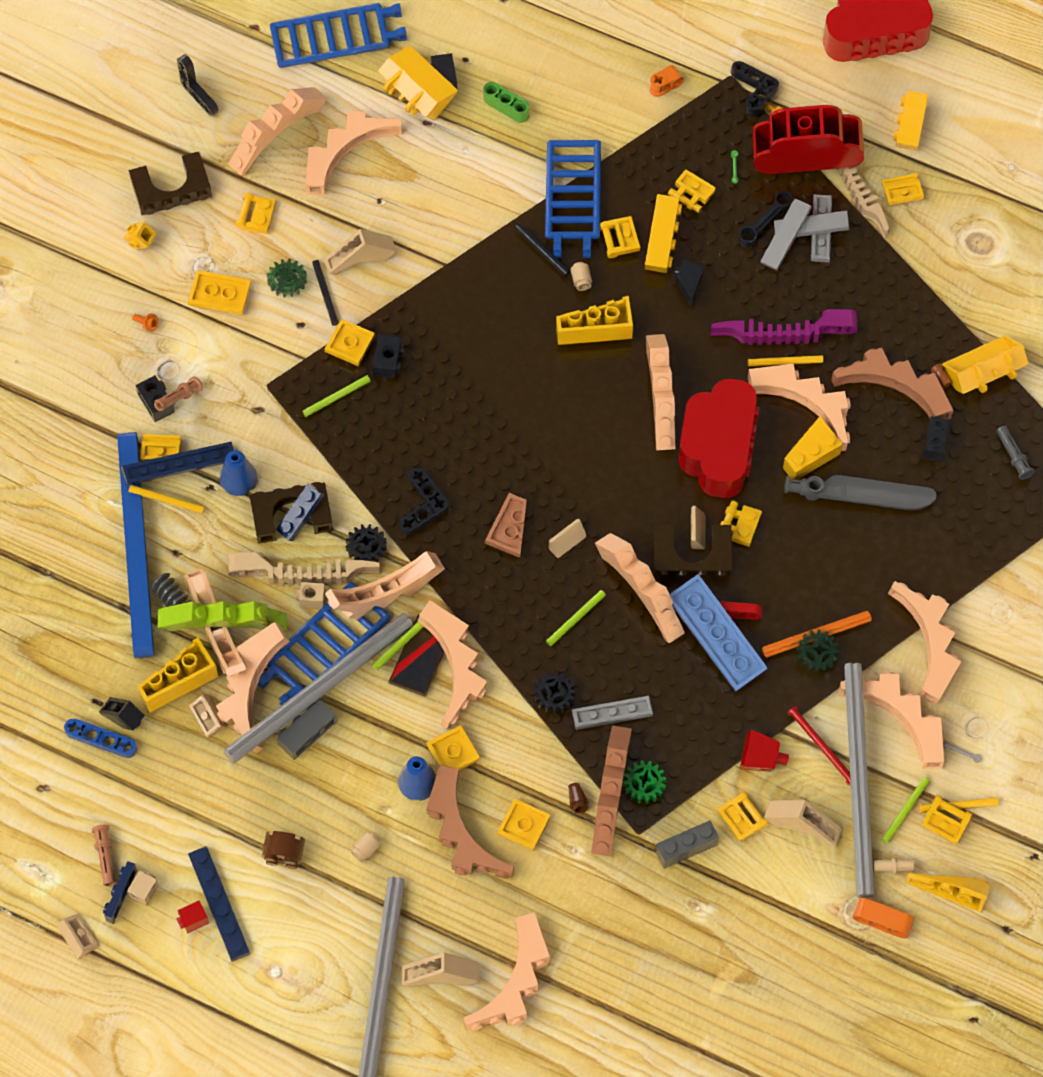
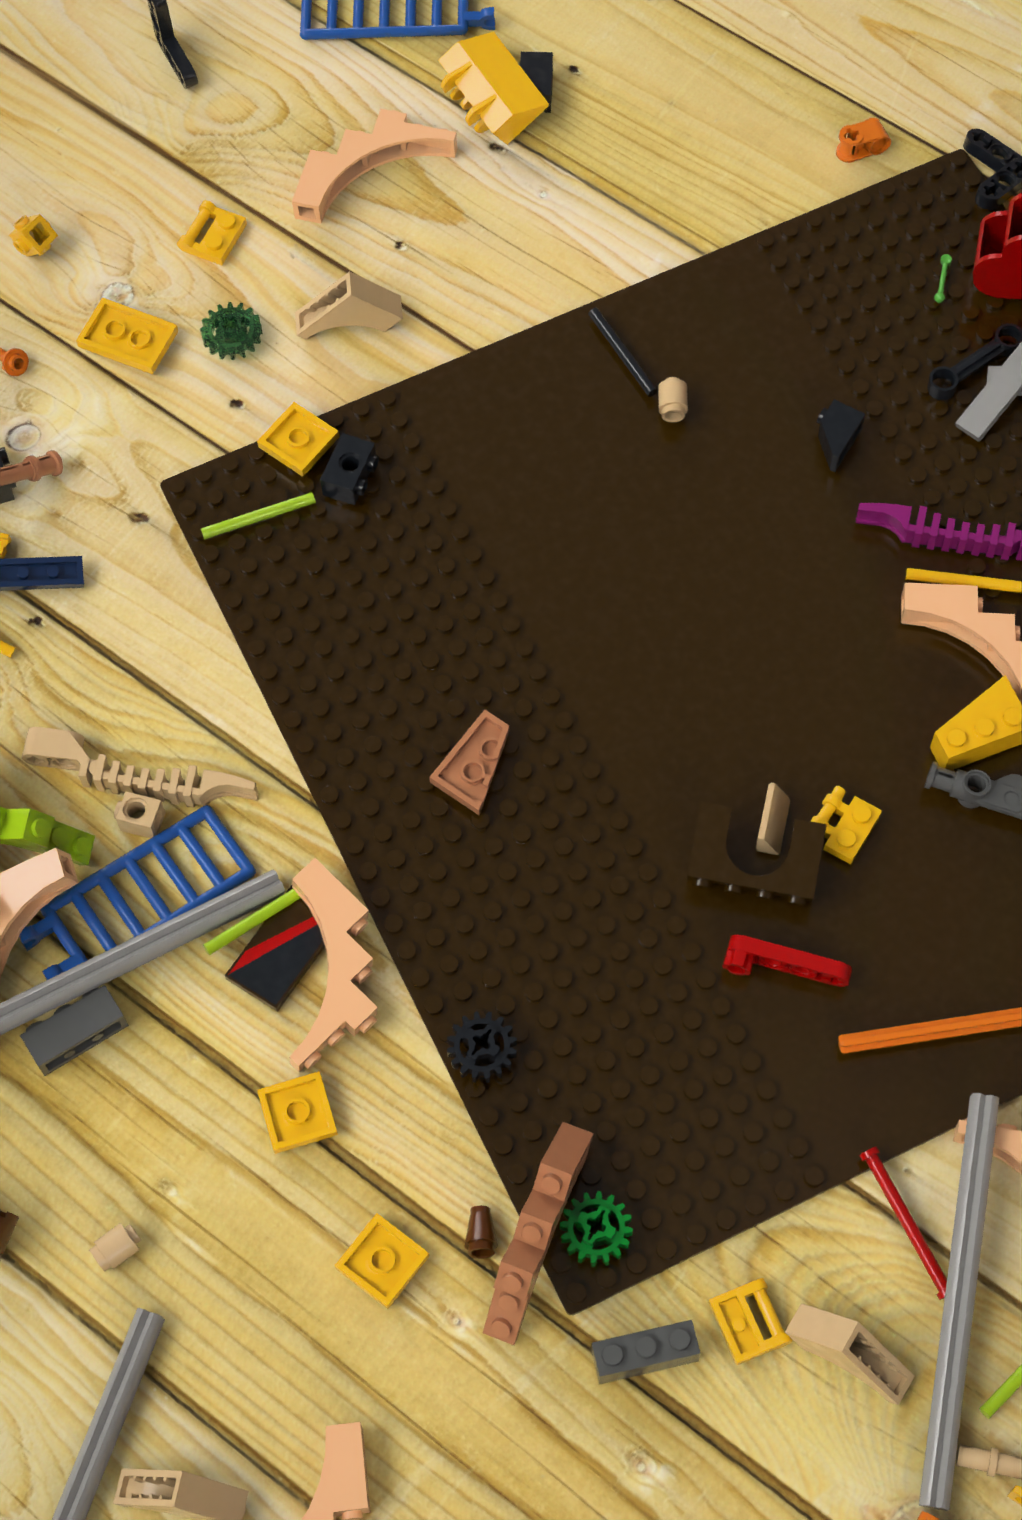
camera: 15 degrees right, 0 degrees up
(153, 200) = (130, 184): dark brown arch -> none
(237, 474) = (78, 606): blue cone -> none
(266, 504) = (107, 662): dark brown arch -> none
(278, 117) = (273, 99): light nougat arch -> none
(300, 512) = (154, 682): plate -> none
(325, 293) = (283, 360): black bar -> none
(372, 538) = (257, 754): black gear -> none
(380, 593) = (246, 831): light nougat arch -> none
(416, 779) = (229, 1149): blue cone -> none
(429, 506) = (357, 709): black beam -> none
(453, 832) = (259, 1199): nougat arch -> none
(503, 95) = (618, 134): bright green beam -> none
(567, 538) = (560, 798): tan slope -> none
(575, 618) = (545, 929): lime bar -> none
(595, 189) = (655, 265): blue bar -> none
(596, 324) = (679, 474): yellow wedge -> none
(612, 712) = (570, 1098): light grey tile -> none
(625, 234) = (754, 351): yellow plate -> none
(639, 576) = (659, 883): light nougat arch -> none
(662, 233) = (811, 355): yellow wedge -> none
(663, 397) = (758, 595): light nougat arch -> none
(693, 186) = (873, 295): yellow plate -> none
(717, 633) = (768, 998): medium blue plate -> none
(720, 437) = (837, 680): red brick -> none
(761, 753) = (803, 1217): red torso -> none
(809, 650) = (934, 1046): clear green gear -> none

